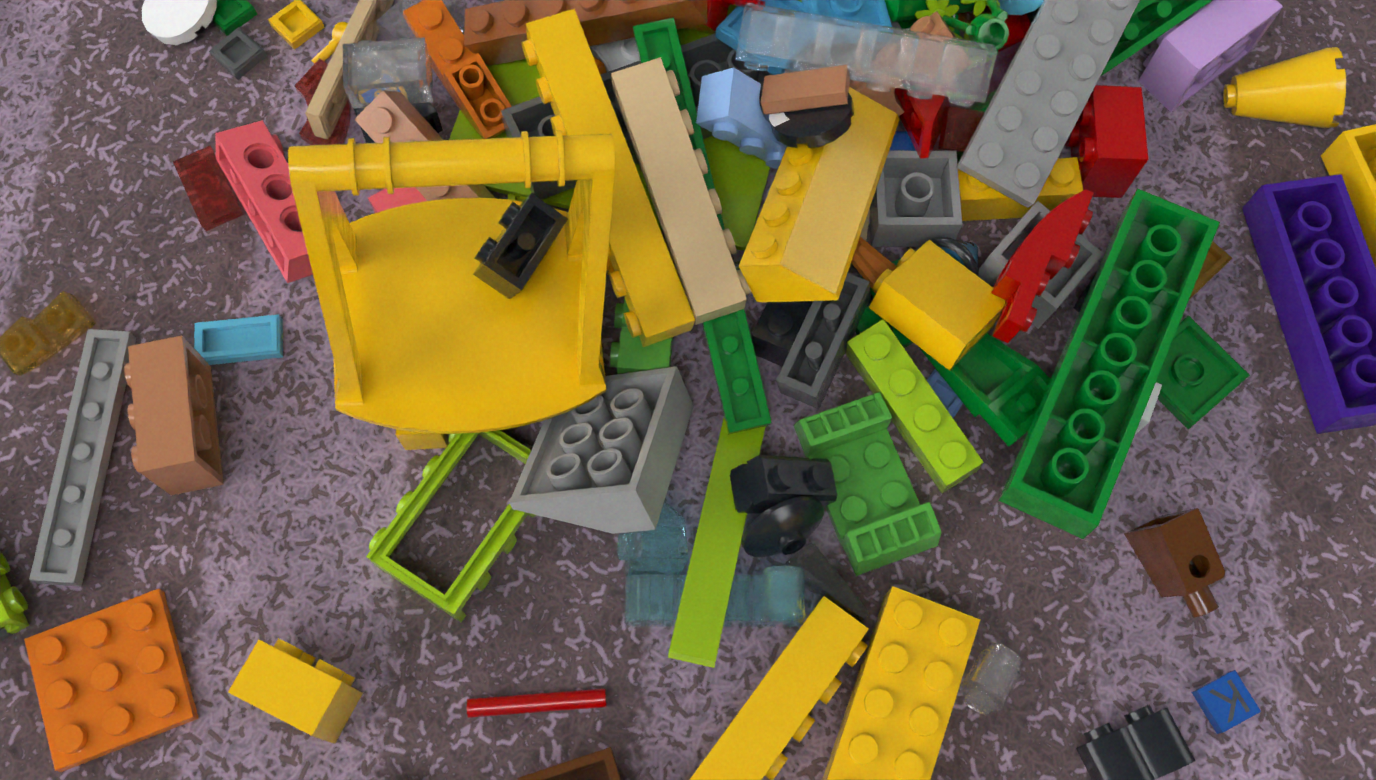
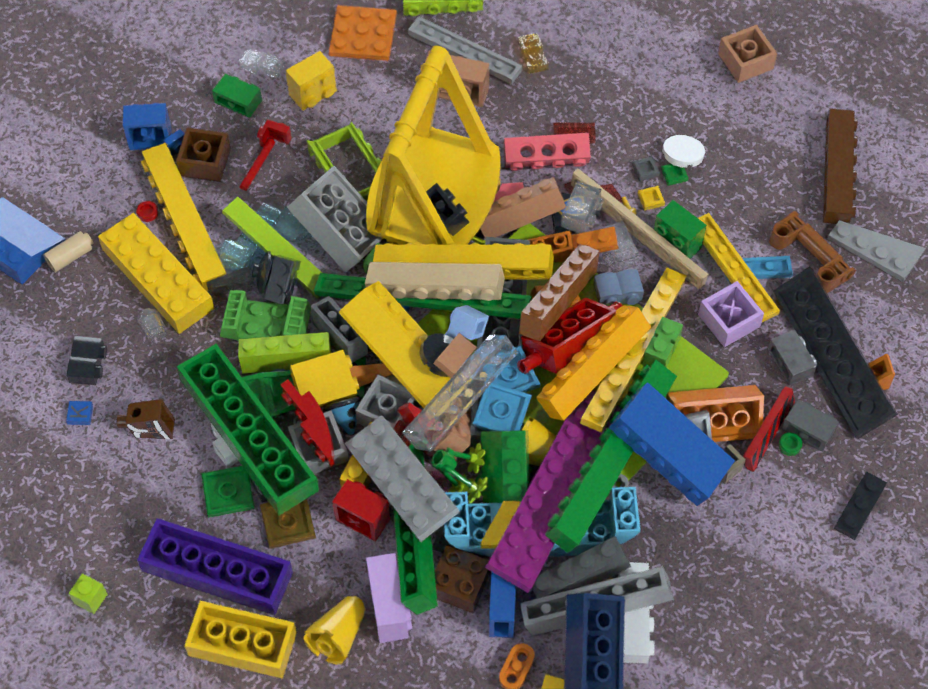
camera: 120 degrees right, 10 degrees down
(239, 339) = (490, 115): medium azure tile -> none
(444, 699) = (275, 131): none -> red bracket

